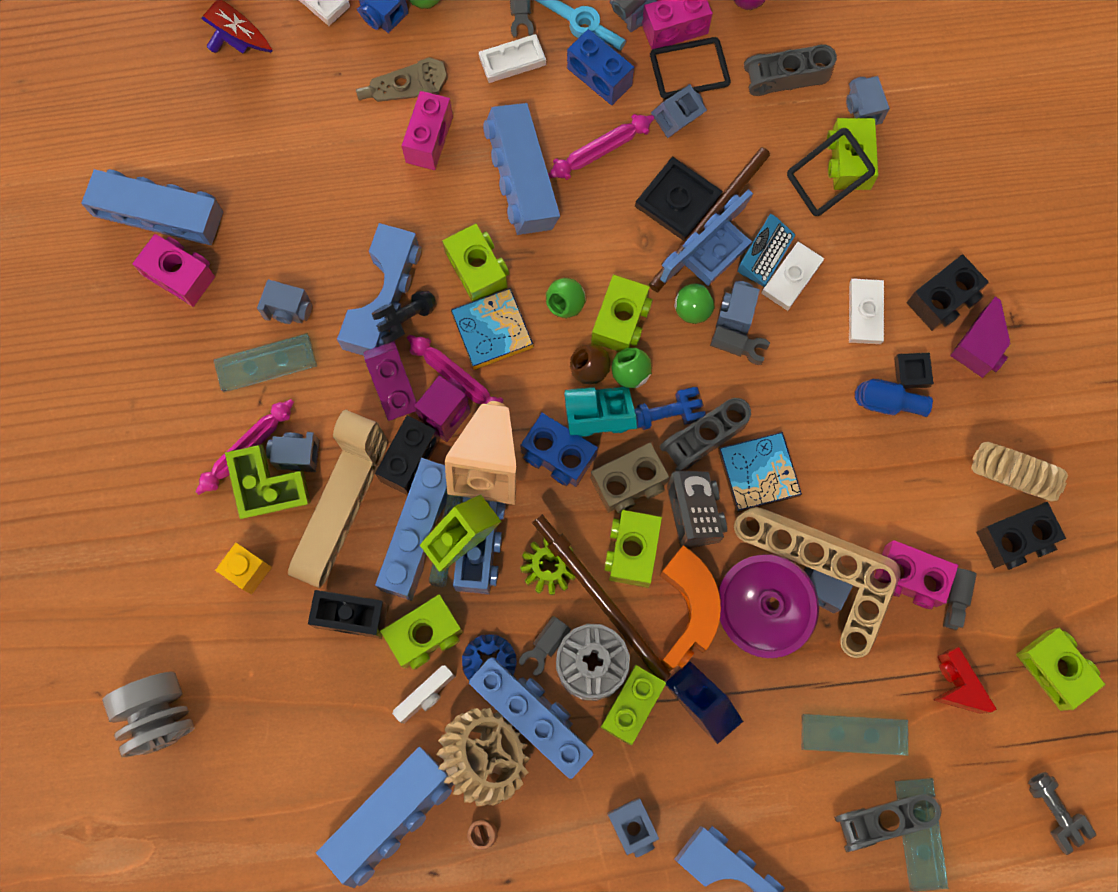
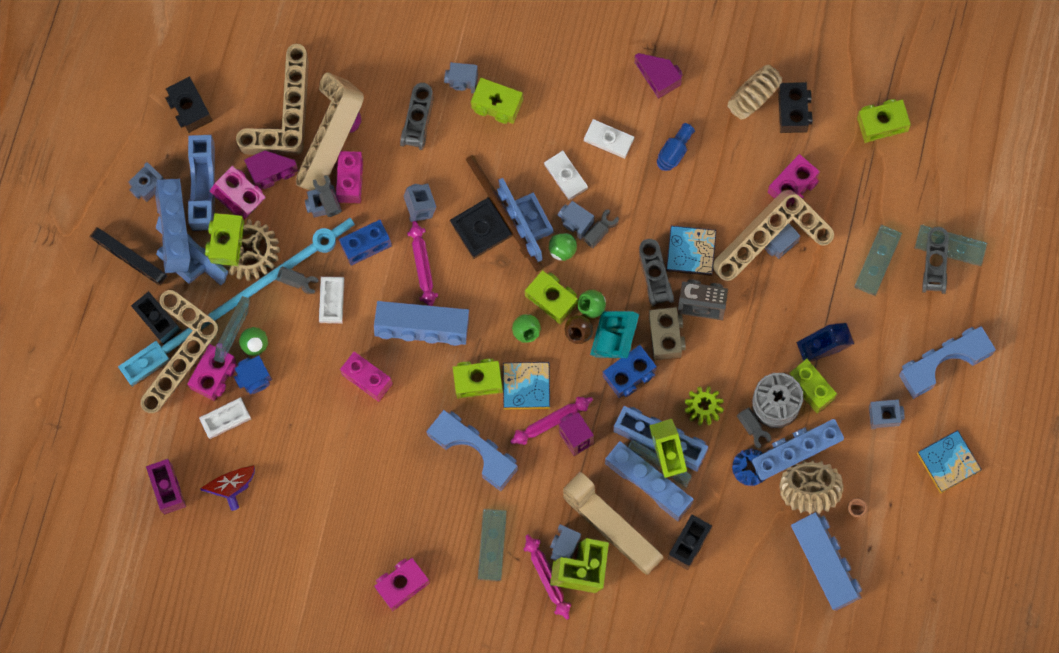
camera: 65 degrees left, 0 degrees up
(152, 206) = (350, 583): medium blue brick -> none
(243, 568) = (633, 601): yellow brick -> none
(284, 303) = (456, 516): sand blue brick -> none
(390, 380) = (543, 461): magenta brick -> none
(402, 633) = (718, 486): lime brick -> none
(403, 456) = (597, 469): black brick -> none
(415, 82) = (317, 372): dark tan piece -> none
(421, 303) = (498, 446): black hinge -> none
(425, 695) = (758, 512): white plate -> none
(484, 457) = (626, 411): light nougat slope -> none
(559, 547) = (698, 391): reddish brown bar -> none
(643, 530) = (707, 336): lime brick -> none
(682, 407) = (629, 283): blue hinge -> none
(700, 592) = (764, 319): orange arch -> none
(716, 41) = (367, 177): black piece -> none
(748, 612) = (785, 293): magenta dish -> none
(766, 251) = (542, 185): slope -> none
(844, 131) = (487, 126): black piece -> none
(914, 370) = (661, 126): black plate -> none
(945, 290) = (614, 83): black brick -> none
(959, 598) = (819, 161): dark grey bar -> none
(968, 690) = (876, 181): red slope -> none
(1043, 786) = (949, 162): dark grey hinge -> none

